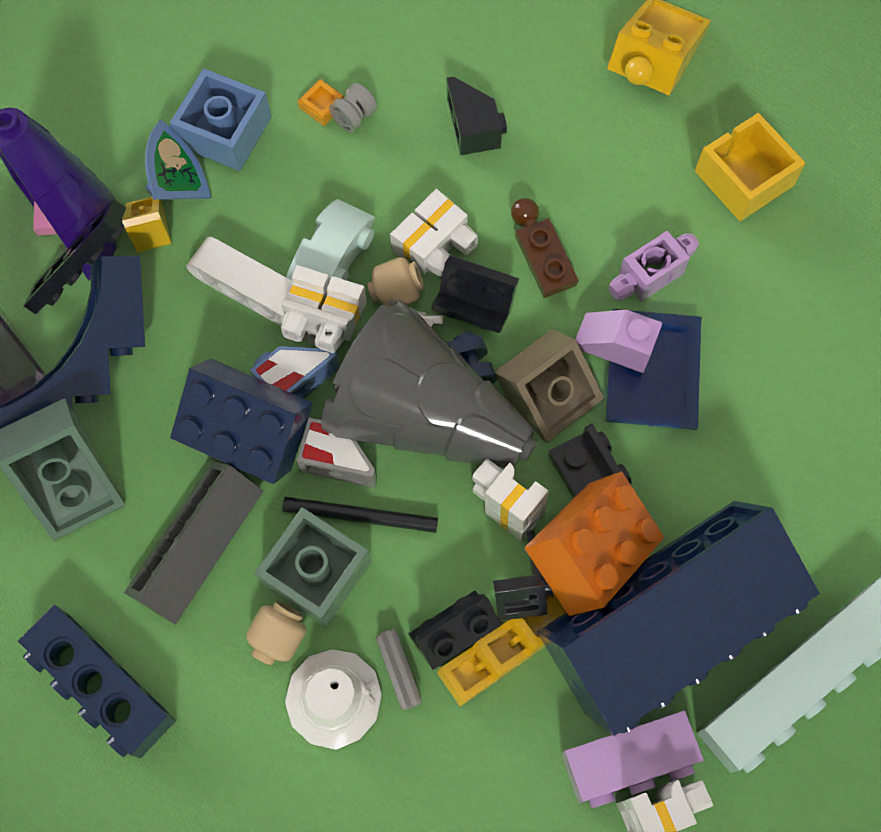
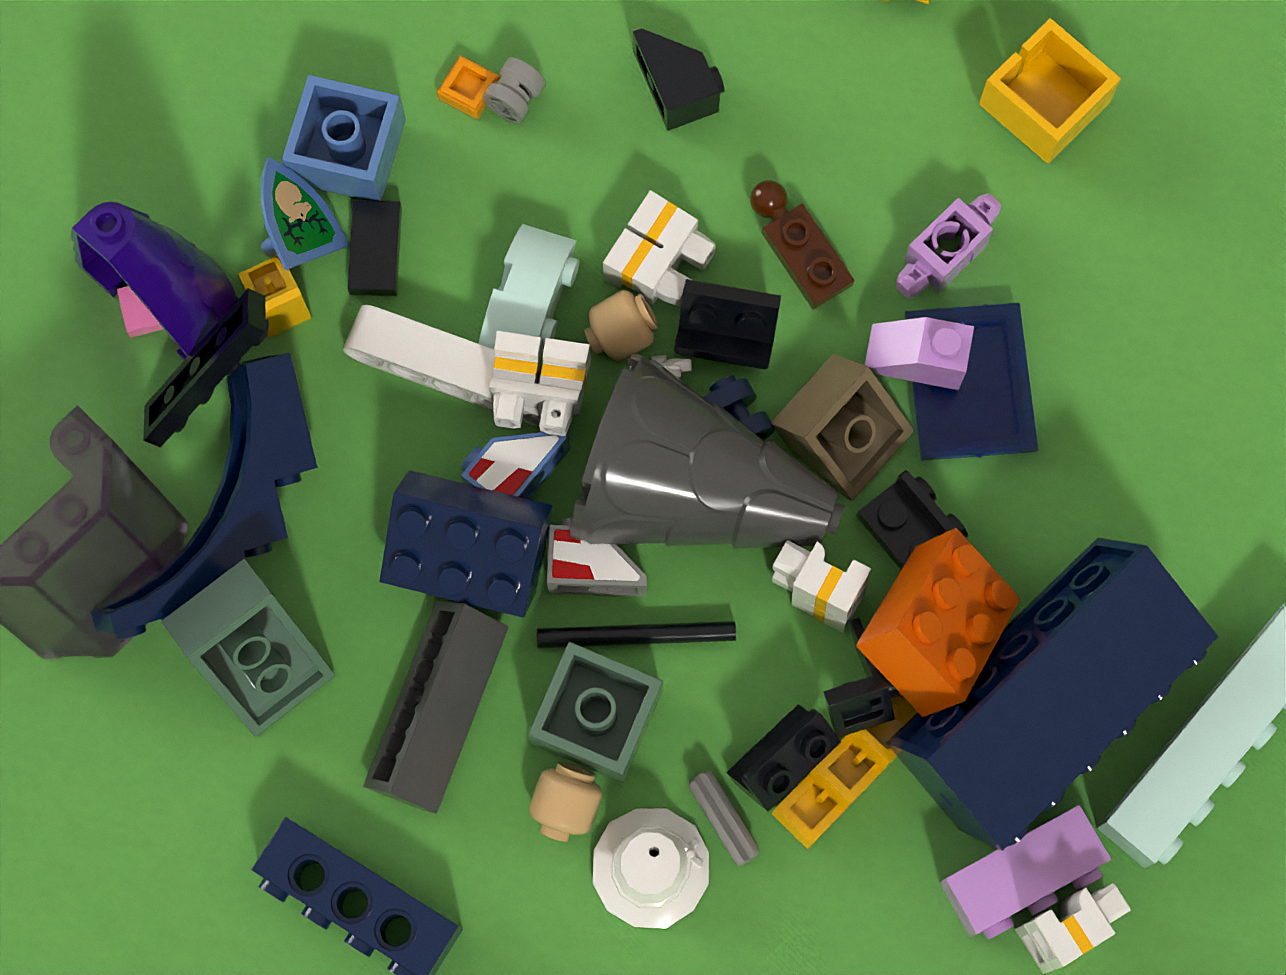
camera: 10 degrees left, 5 degrees up
(228, 201) = (374, 248): none -> black tile

